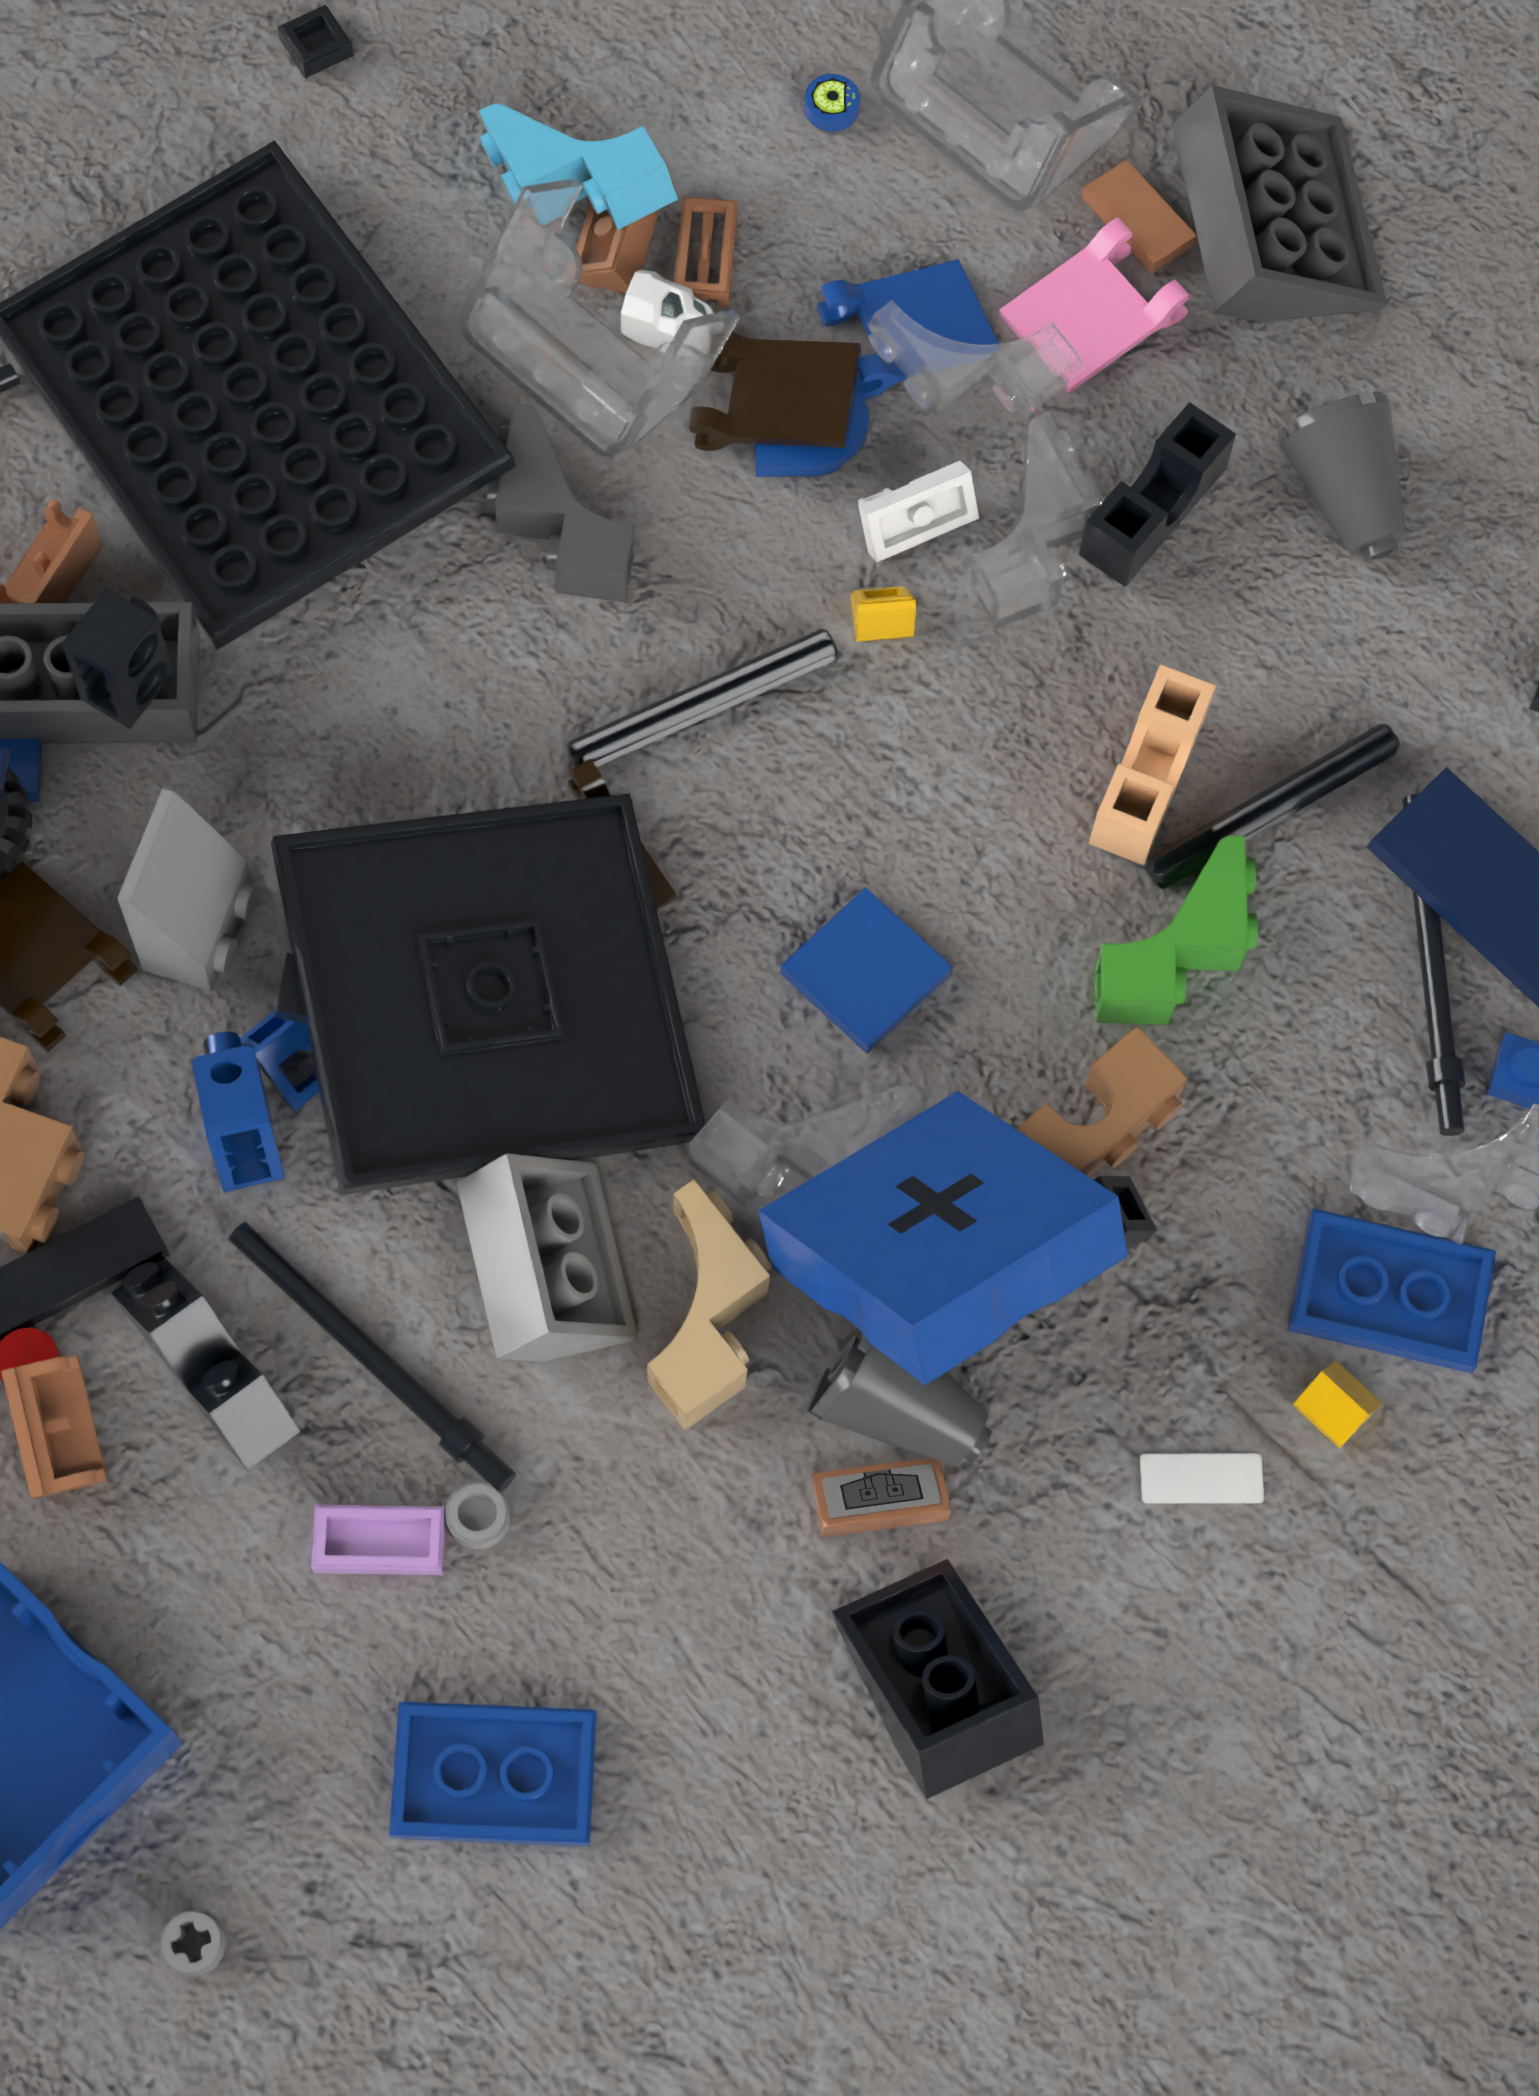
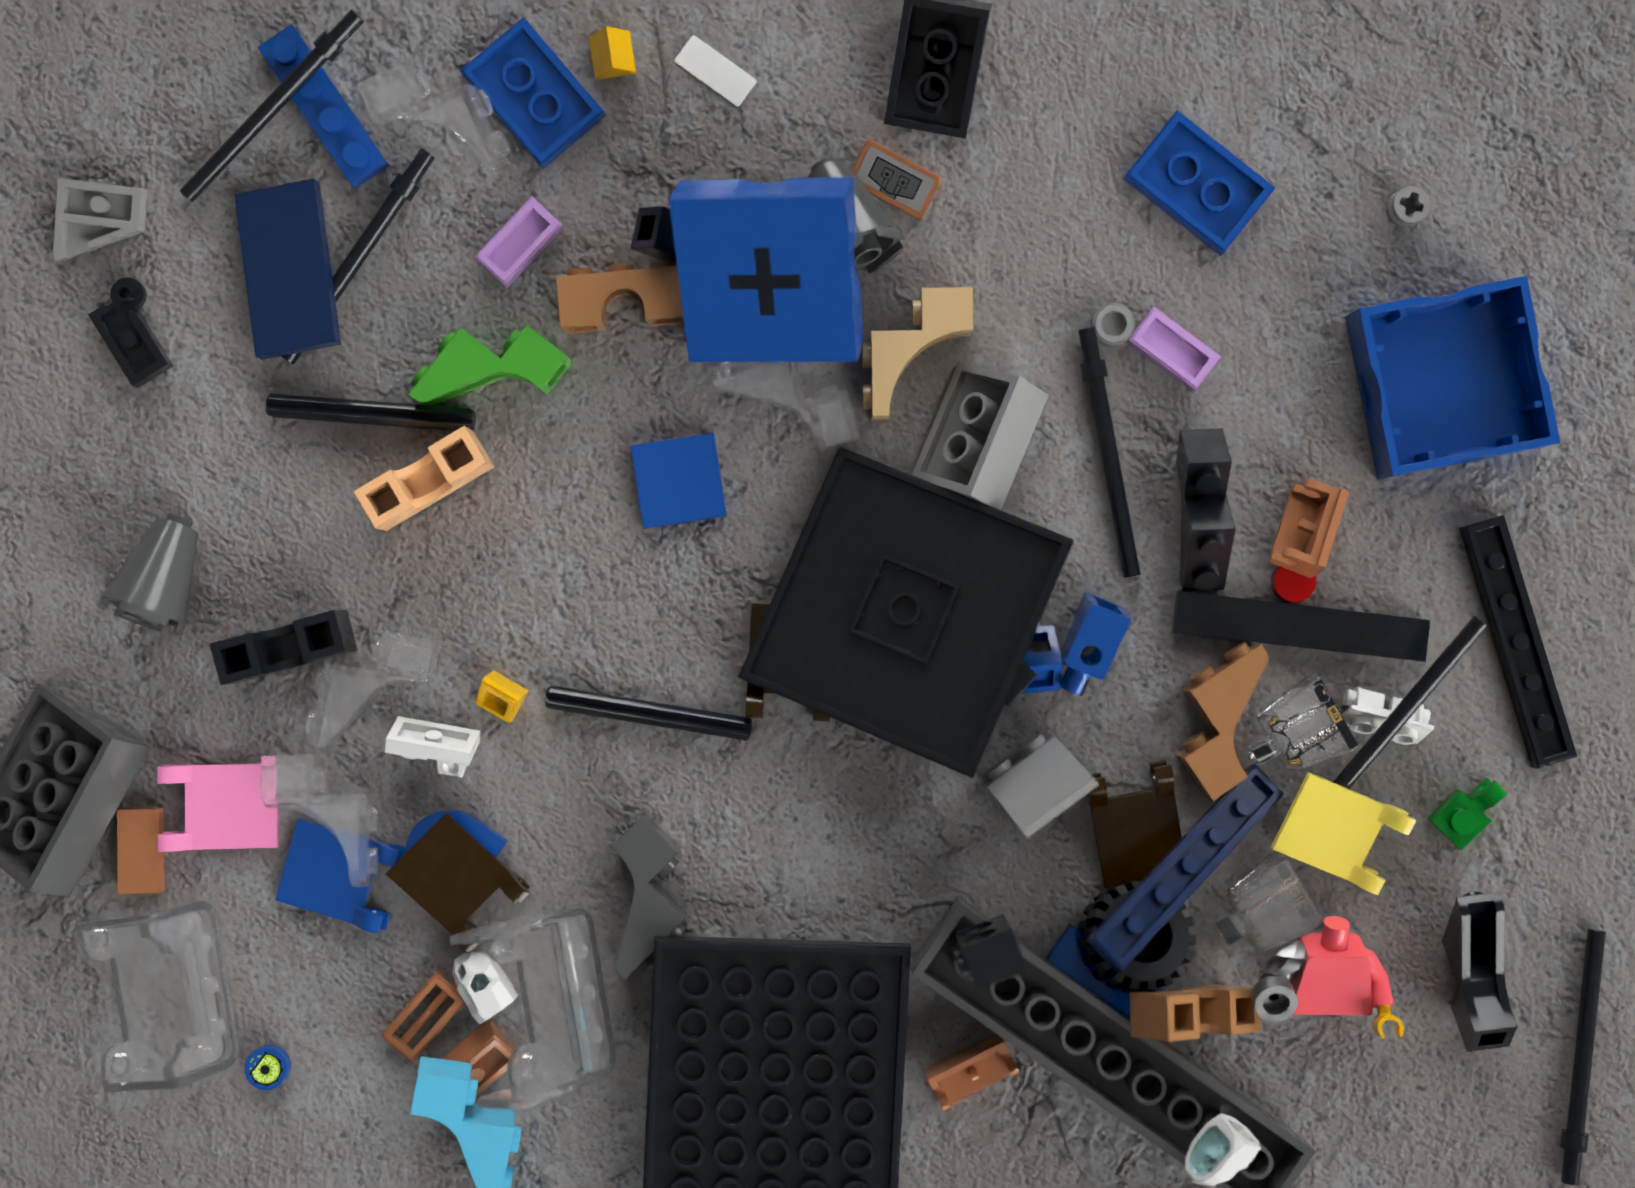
camera: 135 degrees left, 20 degrees up
(1265, 1108) = (519, 241): none -> lavender tile

